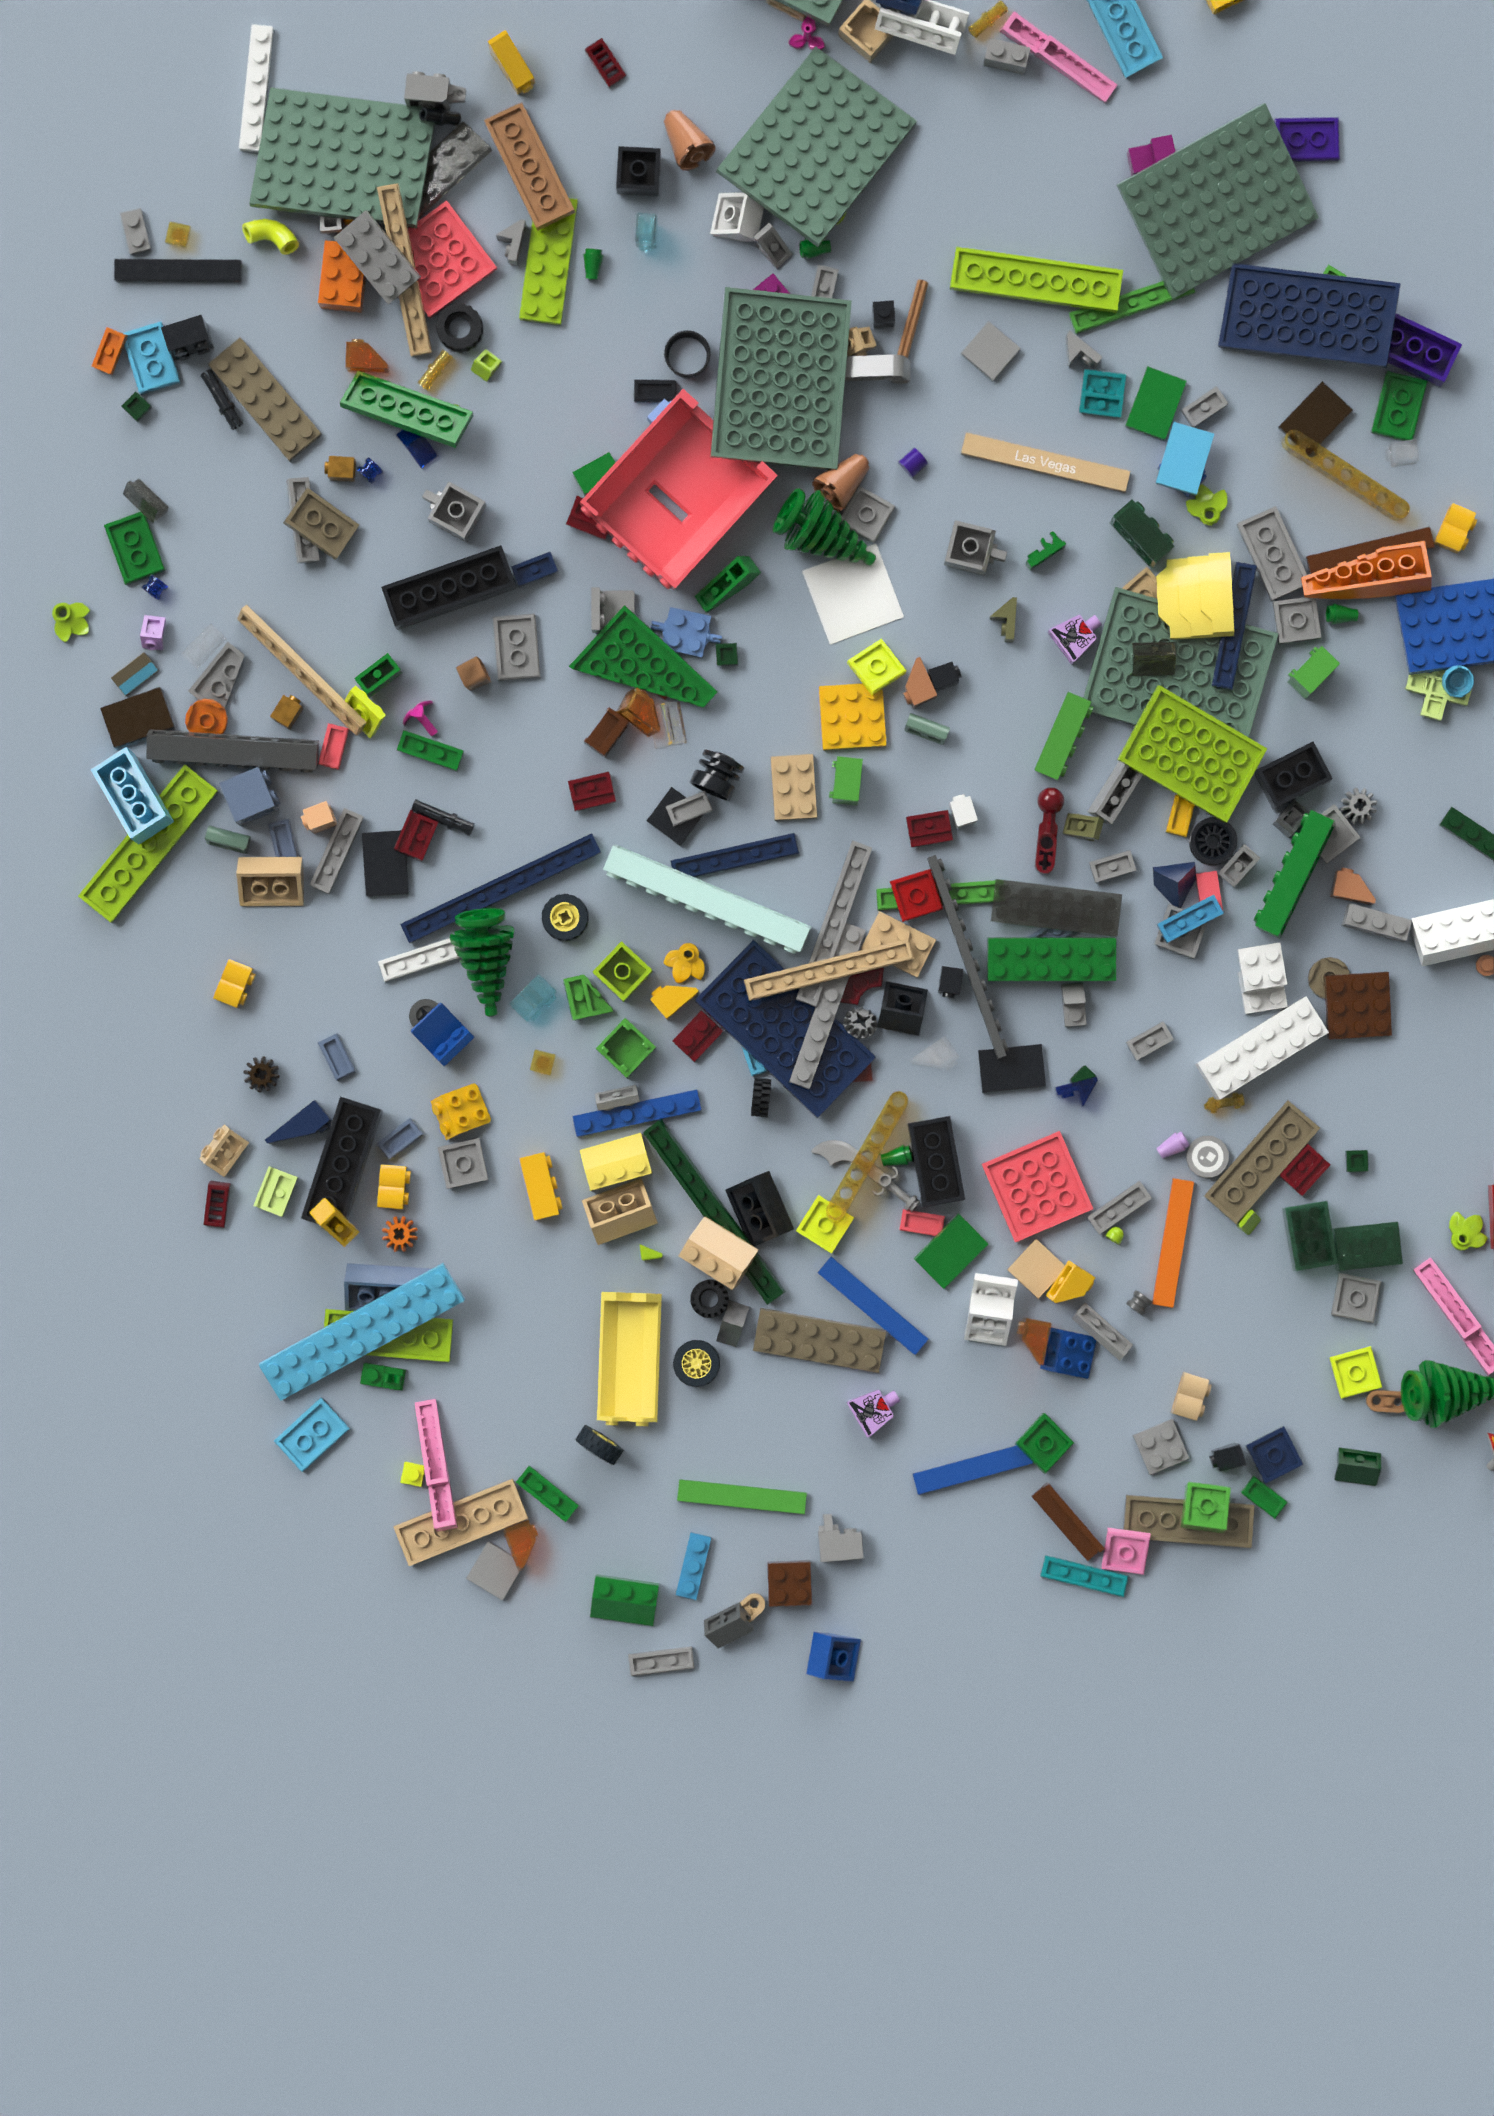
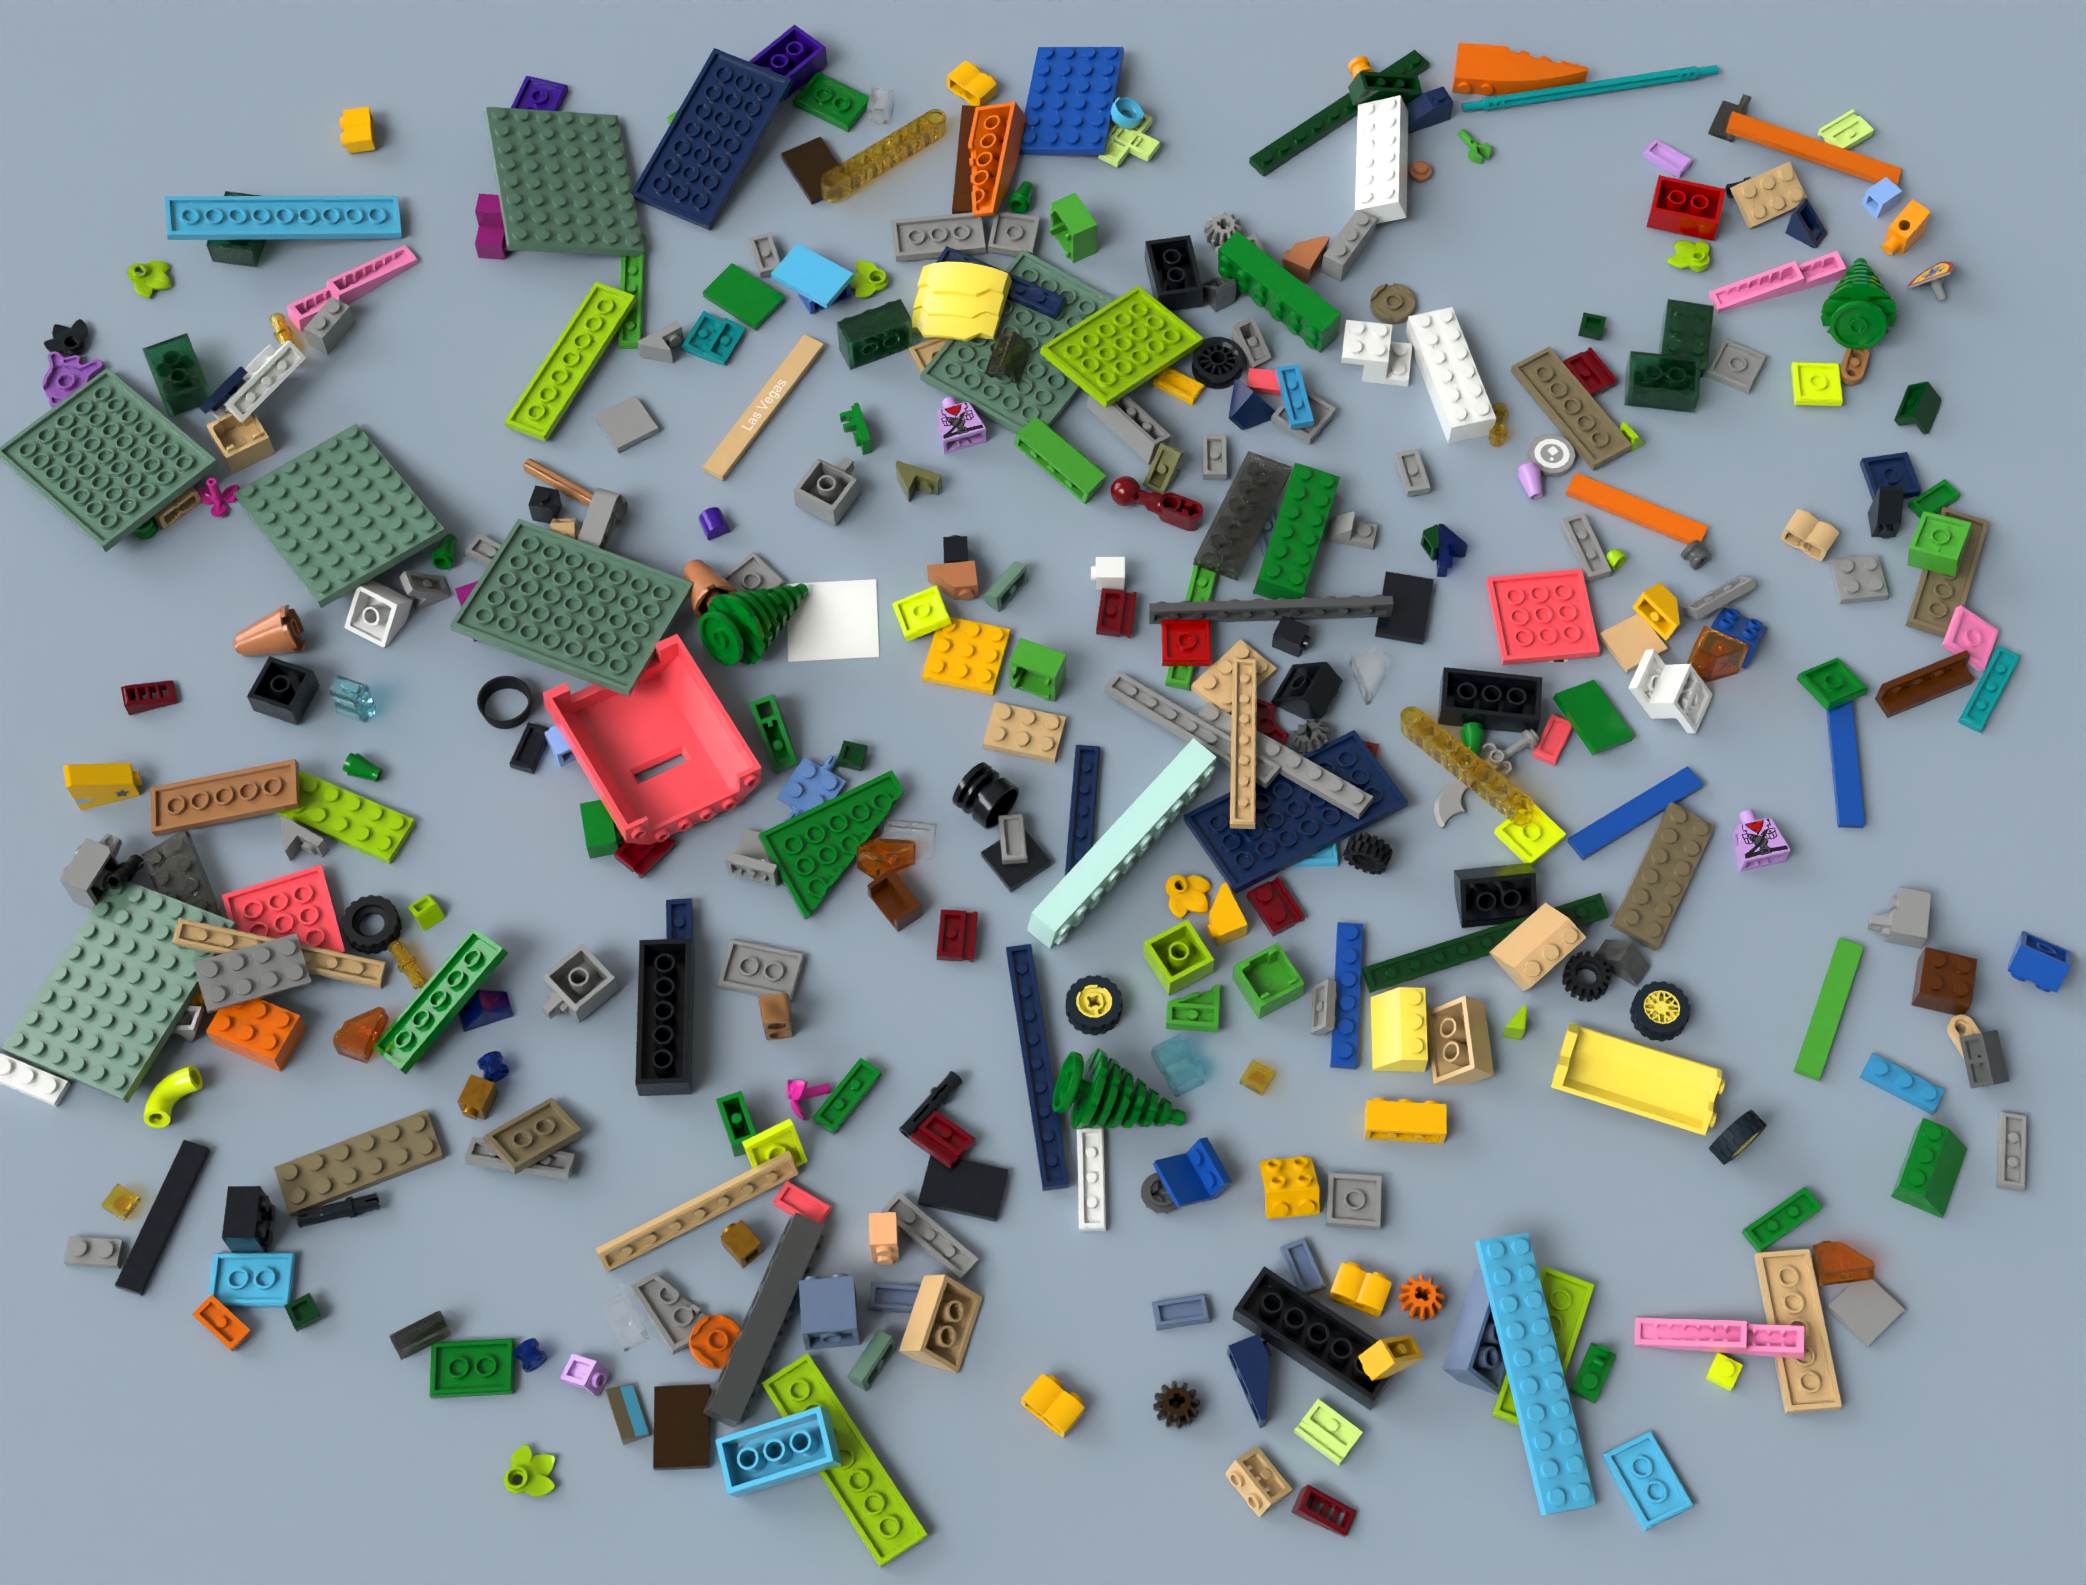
camera: 75 degrees left, 25 degrees down
(1358, 1005) = (1428, 282): reddish brown plate -> none

